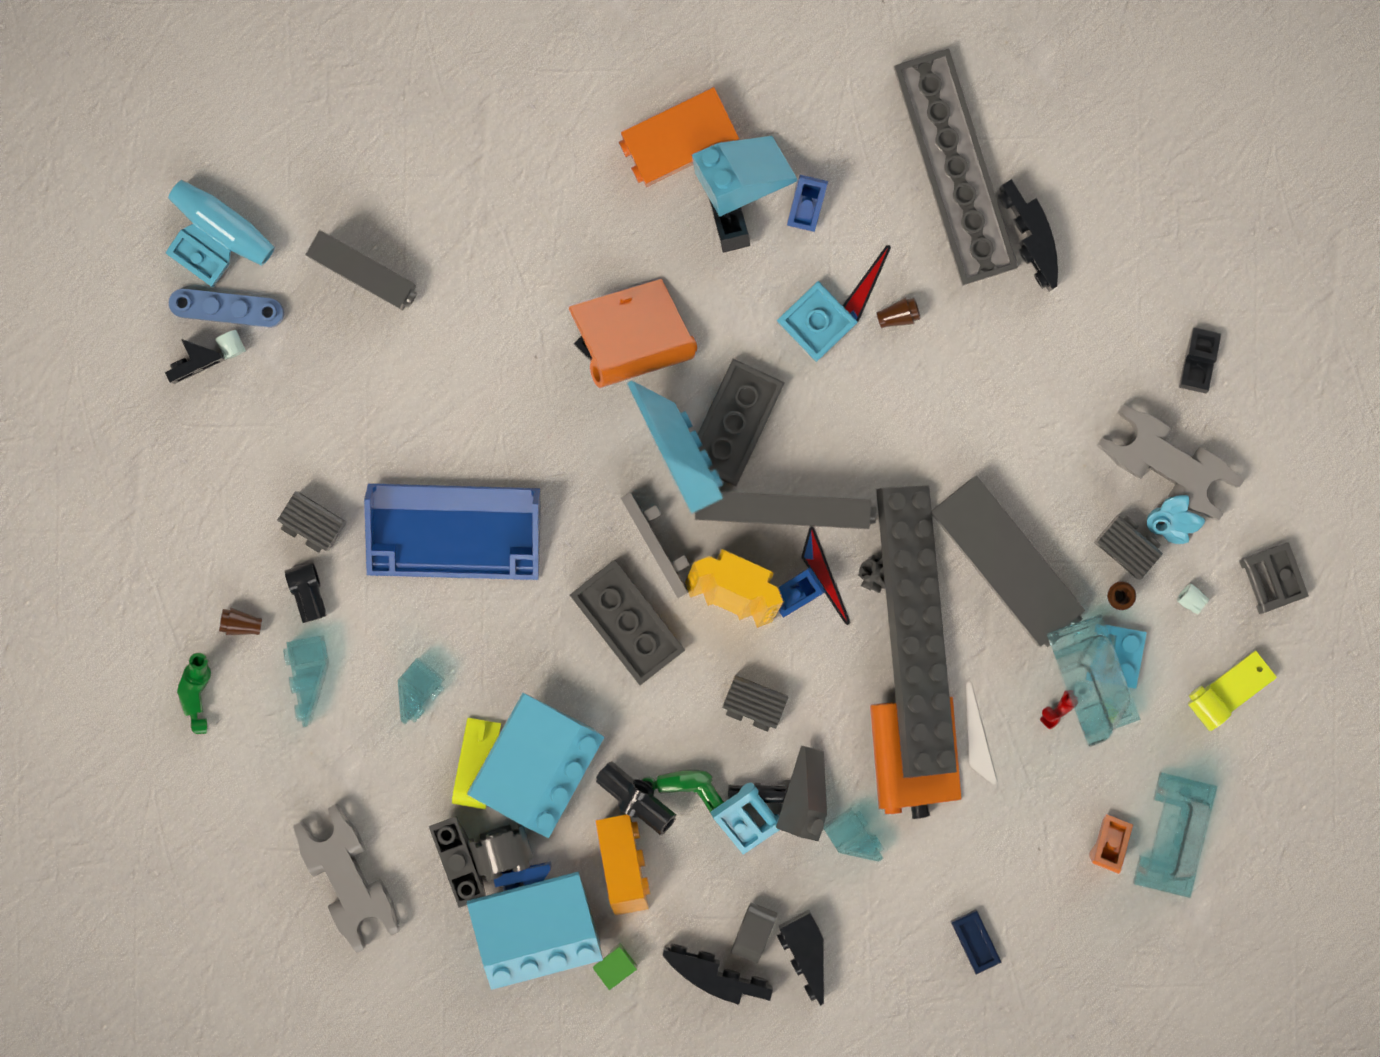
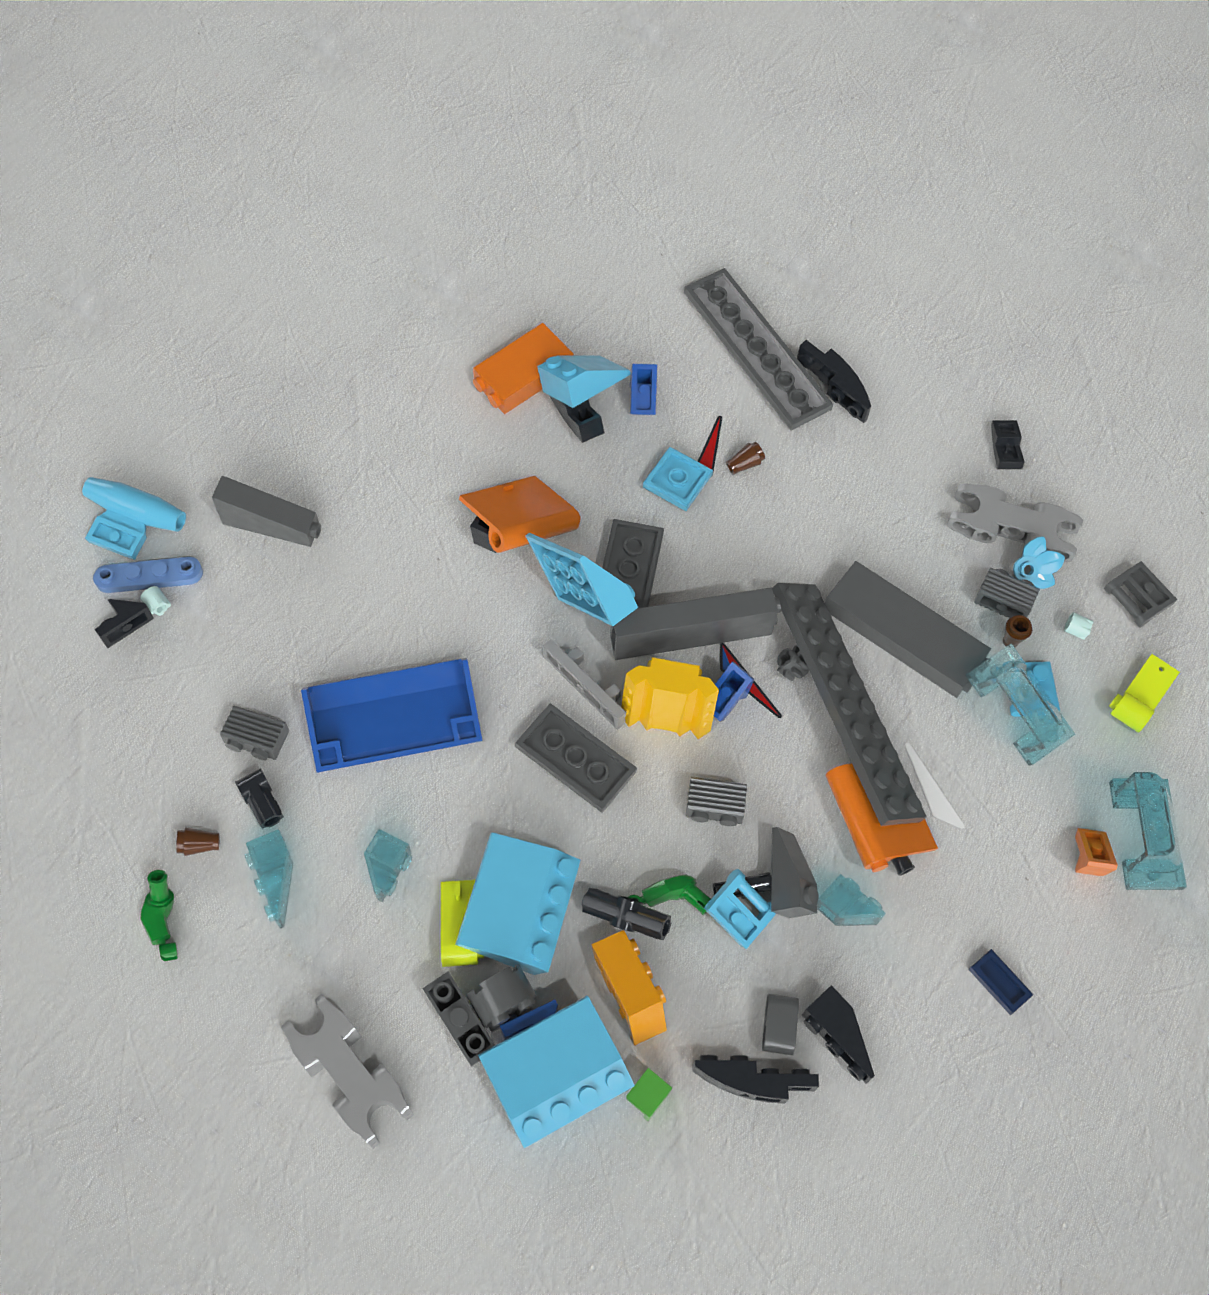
camera: 15 degrees left, 25 degrees down
(1052, 717) = (1002, 740): red arm -> none

